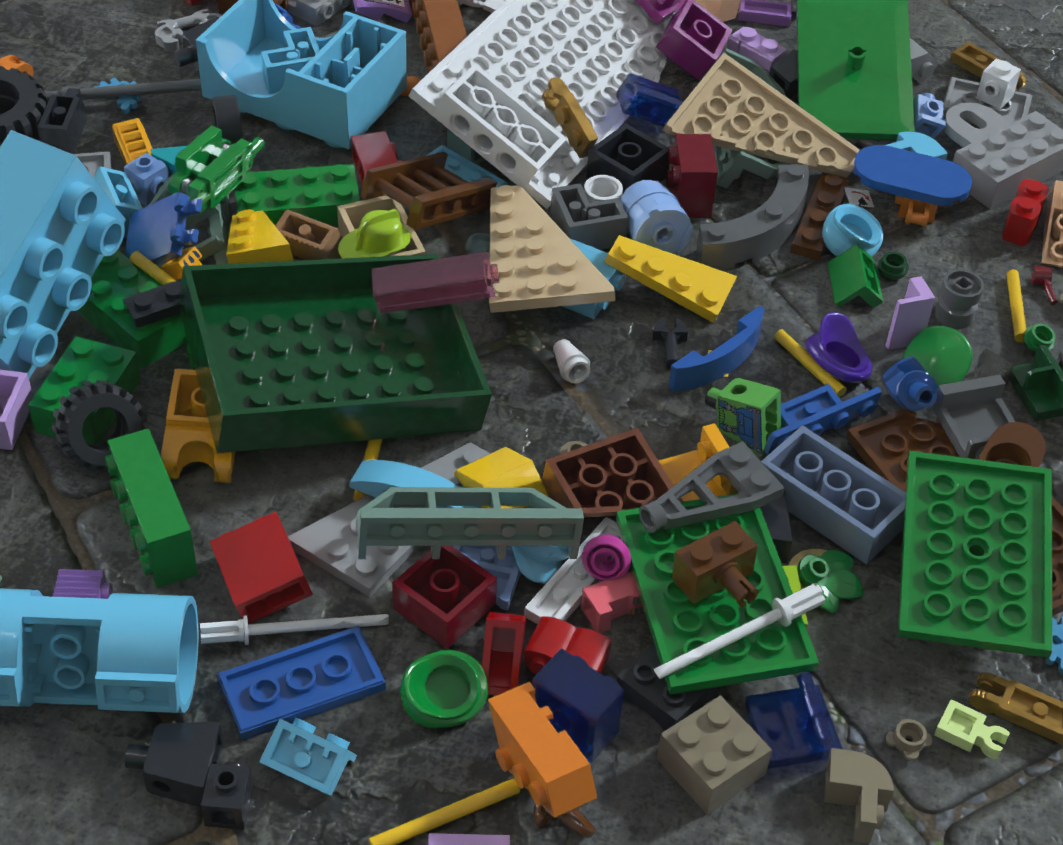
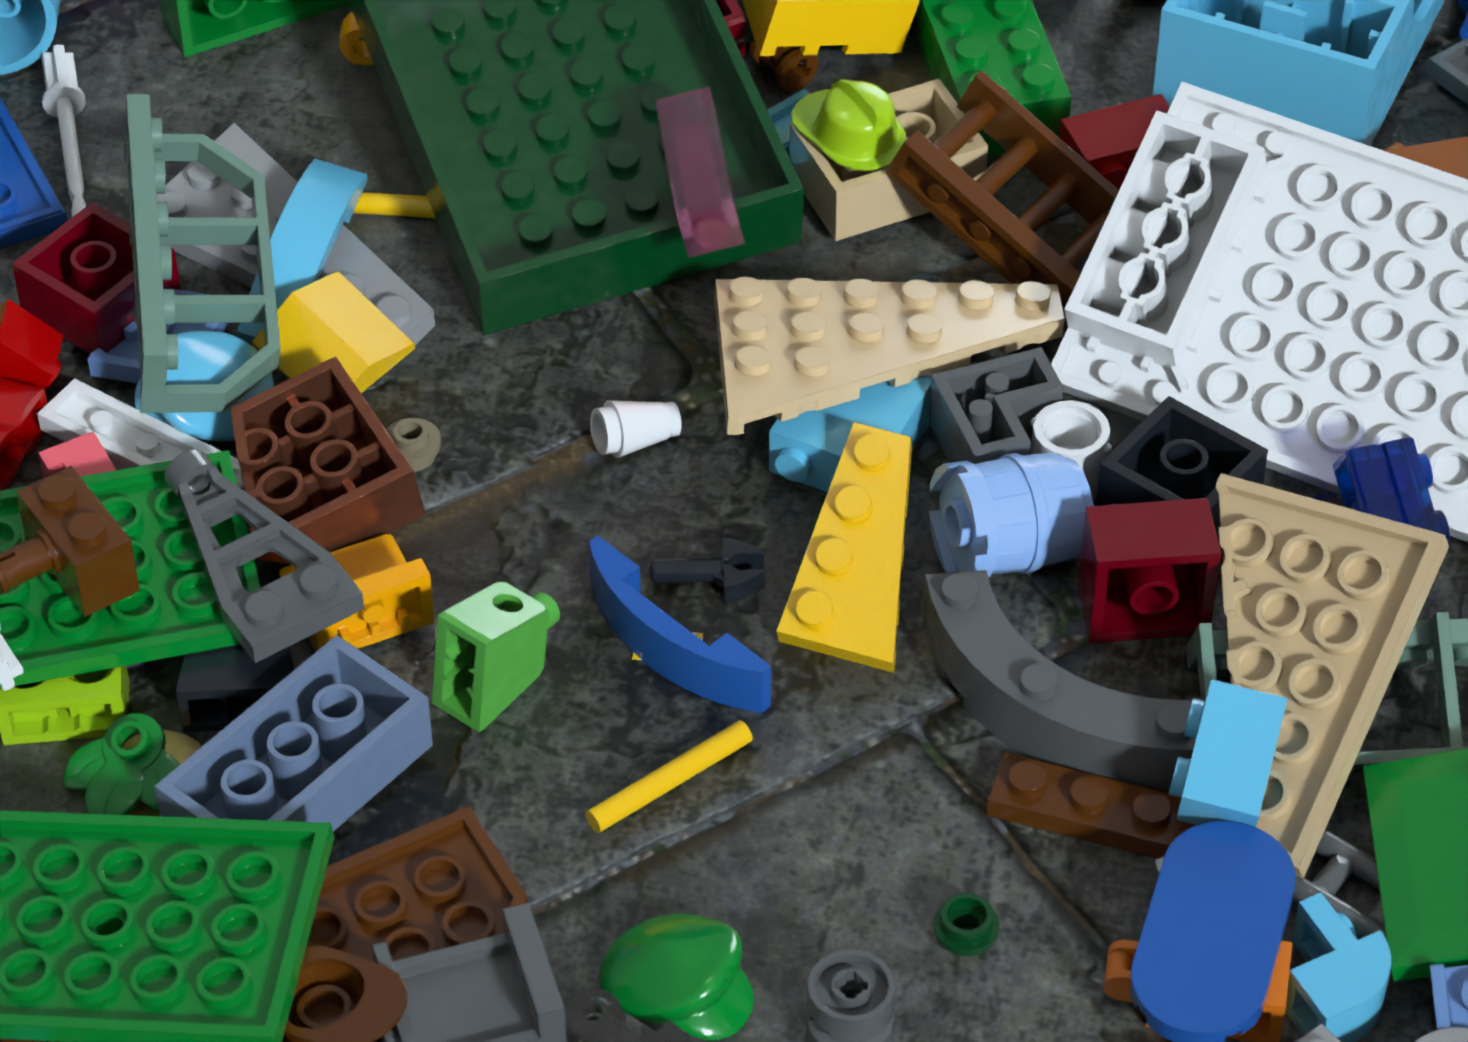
camera: 90 degrees right, 0 degrees up
(260, 568) = (186, 85): red brick -> none
(309, 237) = (886, 56): medium nougat brick -> none
(570, 116) = (1244, 350): pearl gold hinge -> none
(606, 557) = (144, 440): dark pink cone -> none
(819, 412) = (516, 762): blue bracket -> none
(825, 151) = (1231, 755): none -> medium azure brick
(839, 350) = (675, 805): dark purple piece -> none
(851, 226) = (1048, 849): medium azure piece -> none
(855, 275) = (915, 861): green panel -> none
(910, 314) = (774, 909): lavender panel -> none
(910, 385) = (579, 913): blue piece -> none

